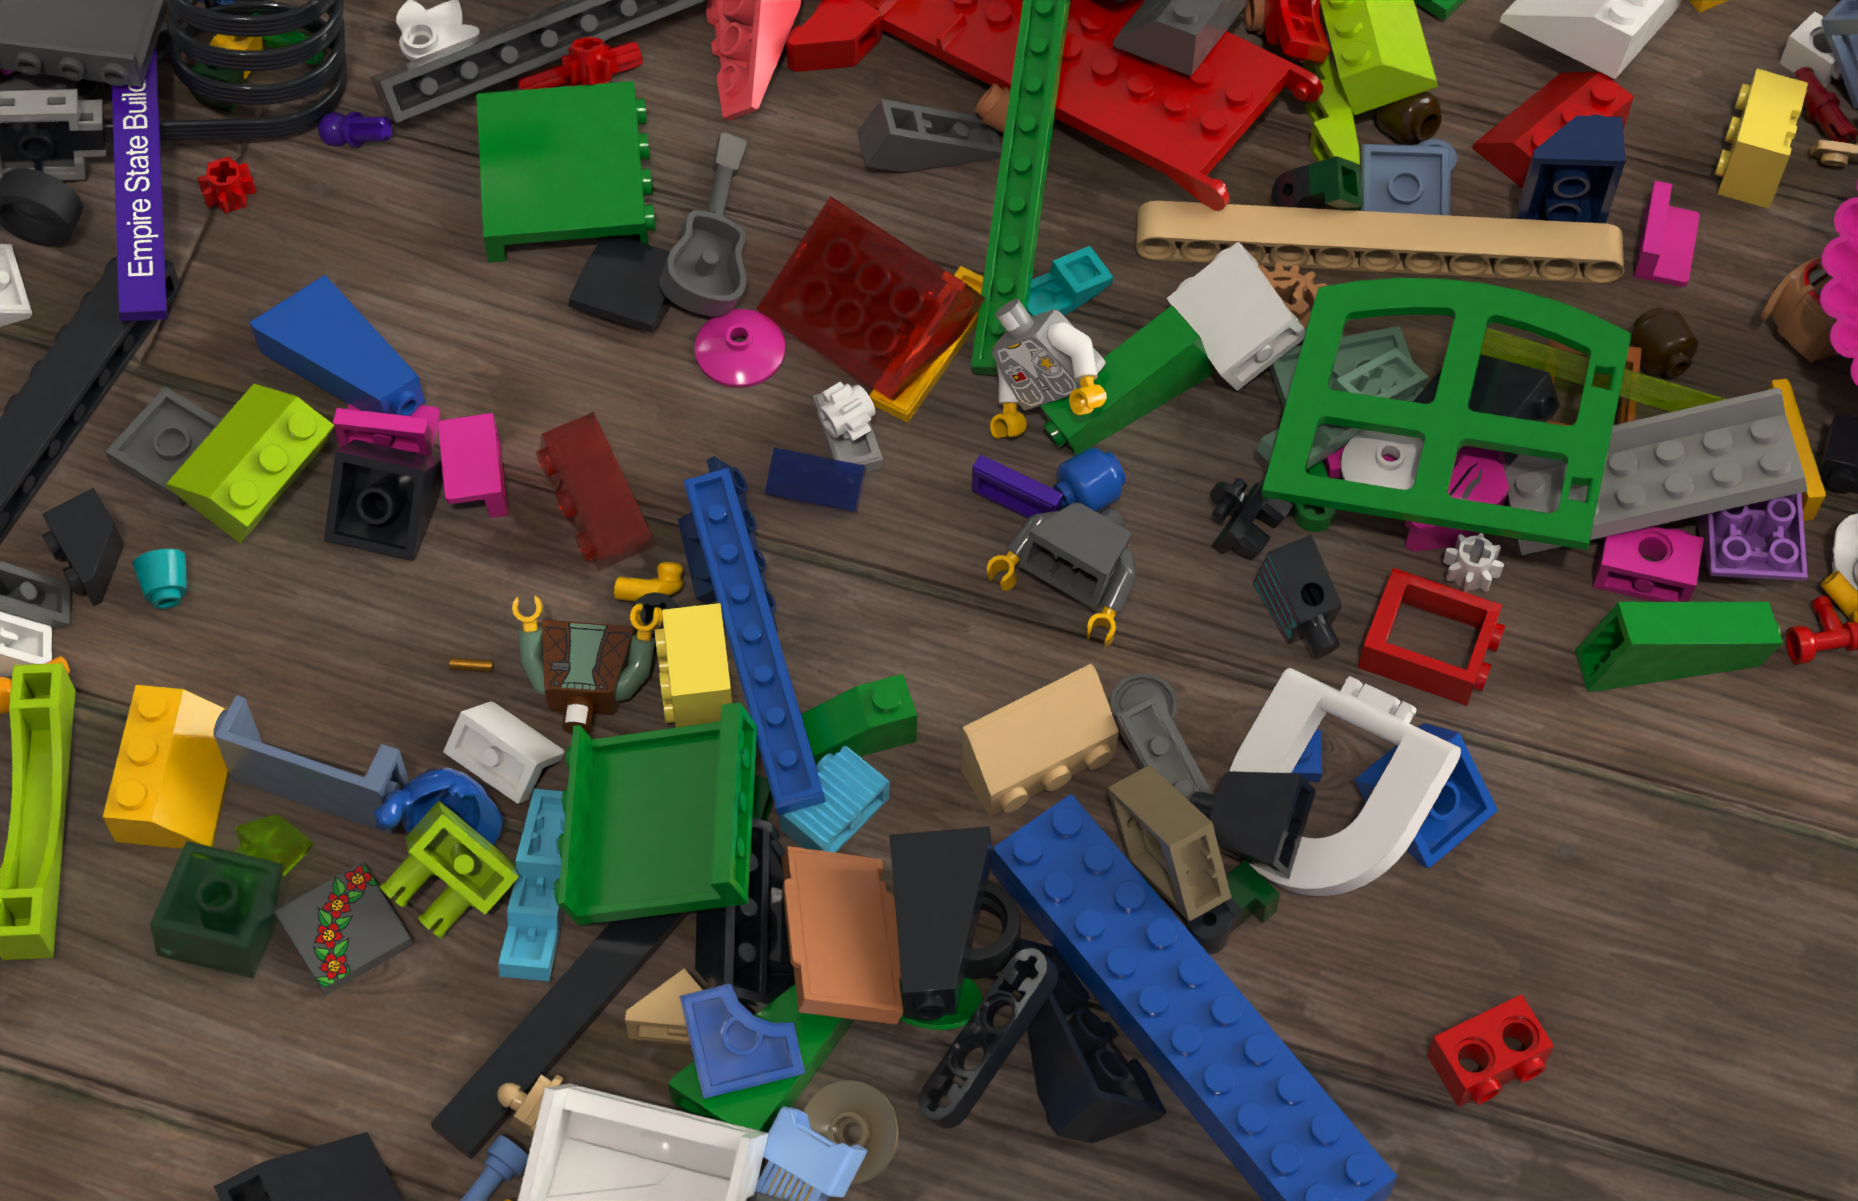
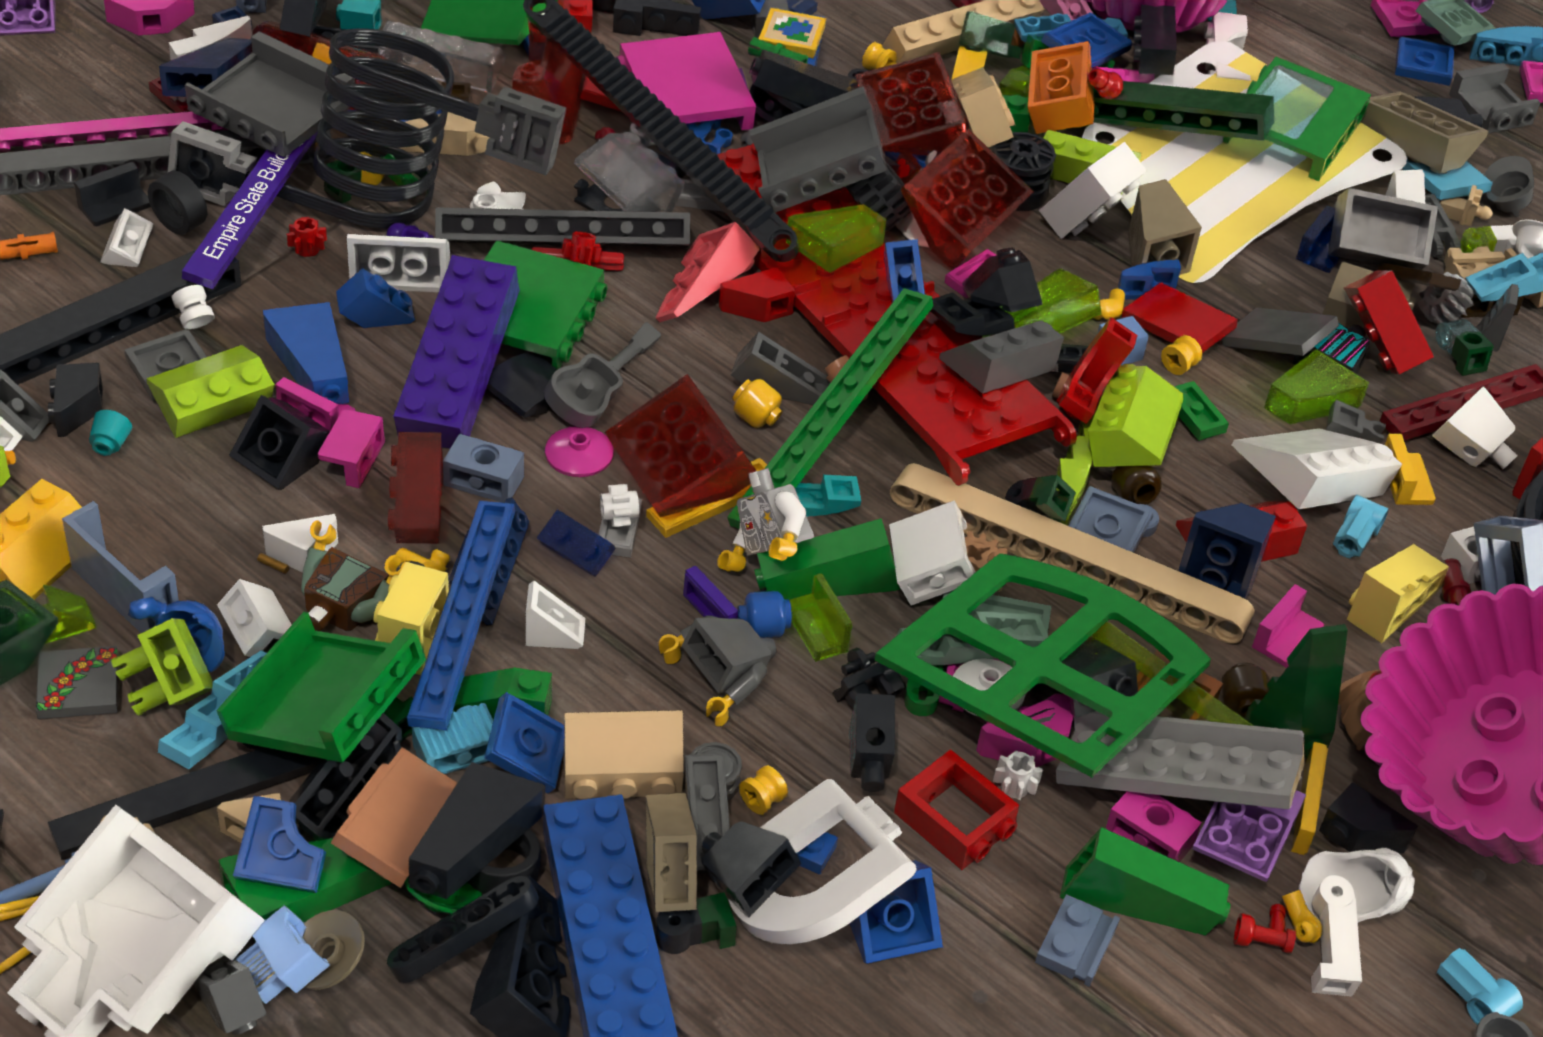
camera: 20 degrees right, 15 degrees down
(145, 344) = (193, 307): none -> white wheel
(371, 177) = (400, 261): none -> white slope
(372, 246) = (373, 302): none -> blue slope
(490, 626) = (291, 540): none -> white slope
(532, 282) = (458, 349): none -> dark purple brick
(668, 439) = (483, 468): none -> sand blue brick
(849, 599) = (551, 621): none -> white slope
(918, 772) = (526, 742): none -> blue tile
(919, 192) = (757, 403): none -> yellow head
(1154, 458) = (821, 621): none -> clear neon green panel
(1209, 709) = (763, 790): none -> yellow wheel
(1634, 736) = (1077, 940): none -> sand blue plate
(1680, 58) = (1360, 523): none -> medium azure piece
(1750, 338) = (1308, 688): none -> dark green wedge

